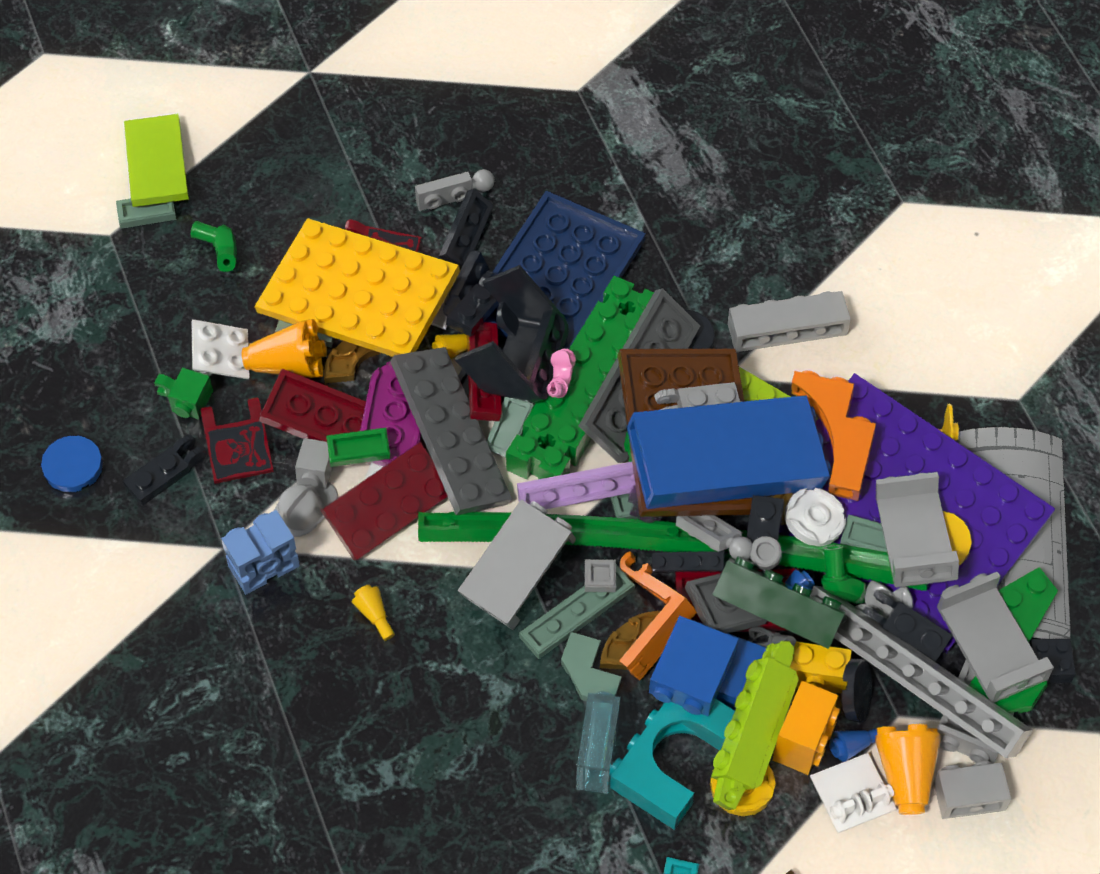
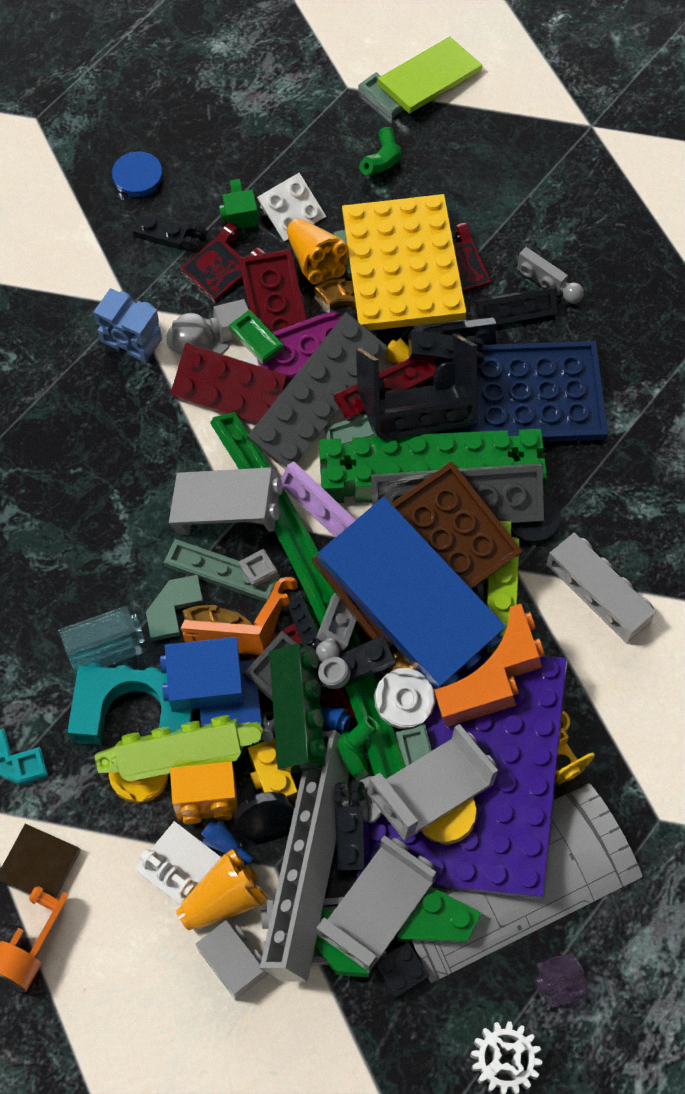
camera: 60 degrees right, 5 degrees up
(370, 604) = (136, 424): yellow cone -> none
(563, 364) = (418, 434): bright pink piece -> none
(698, 395) = (448, 546): light grey hinge -> none

